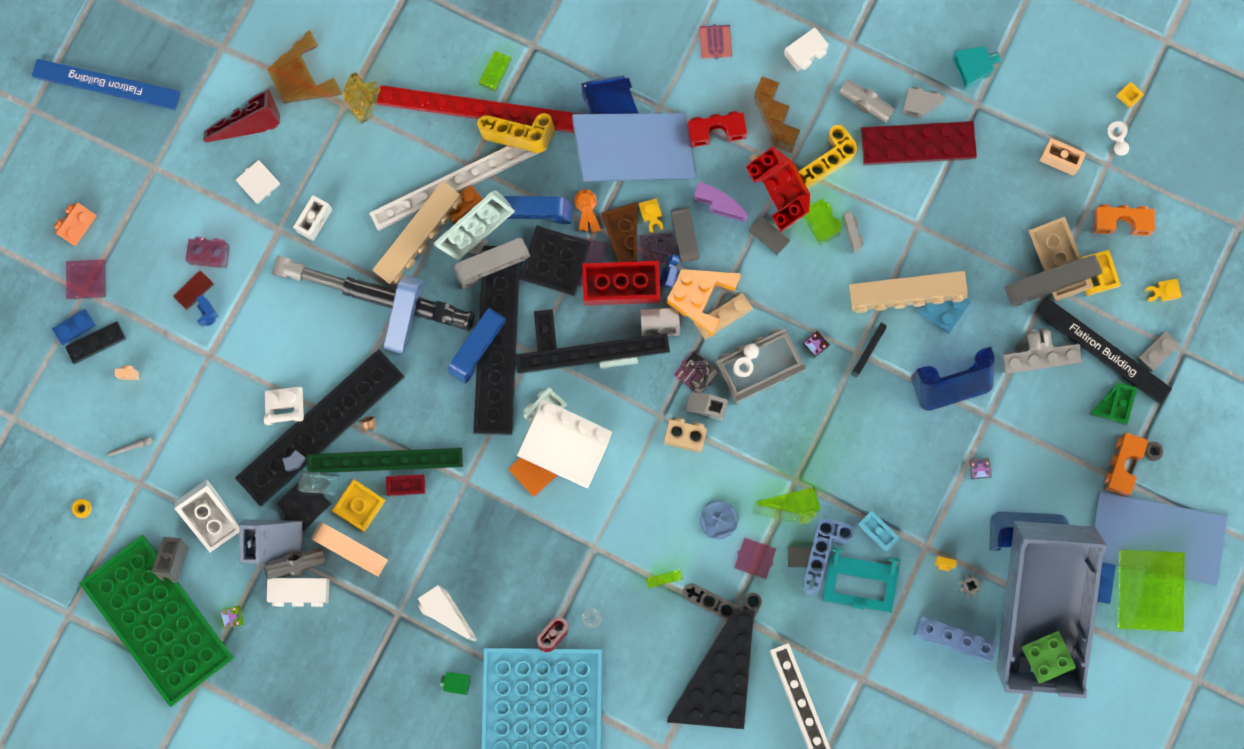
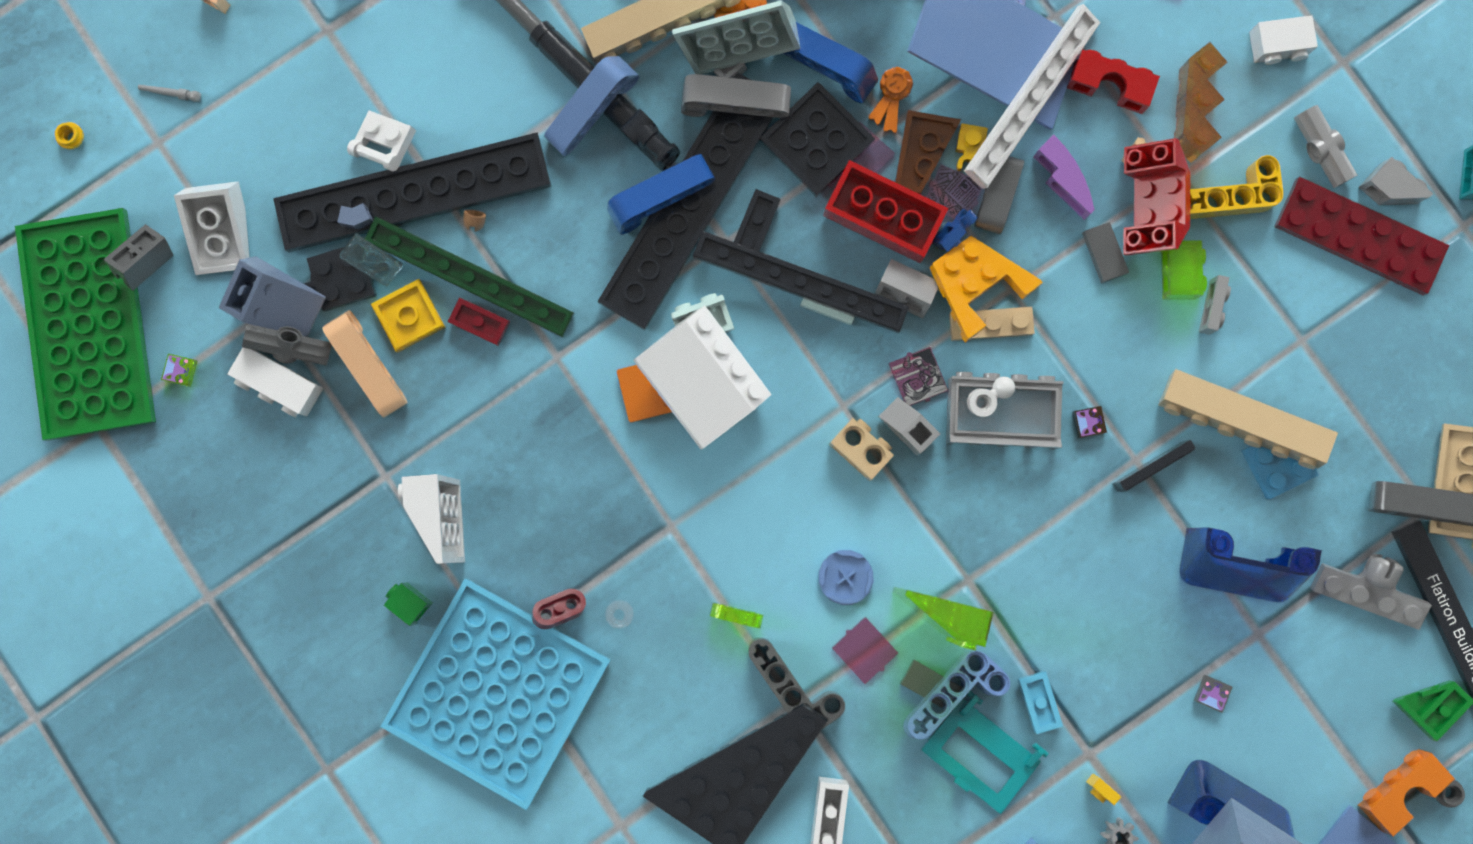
camera: 25 degrees right, 5 degrees up
(672, 165) = (1032, 97): none -> white tile

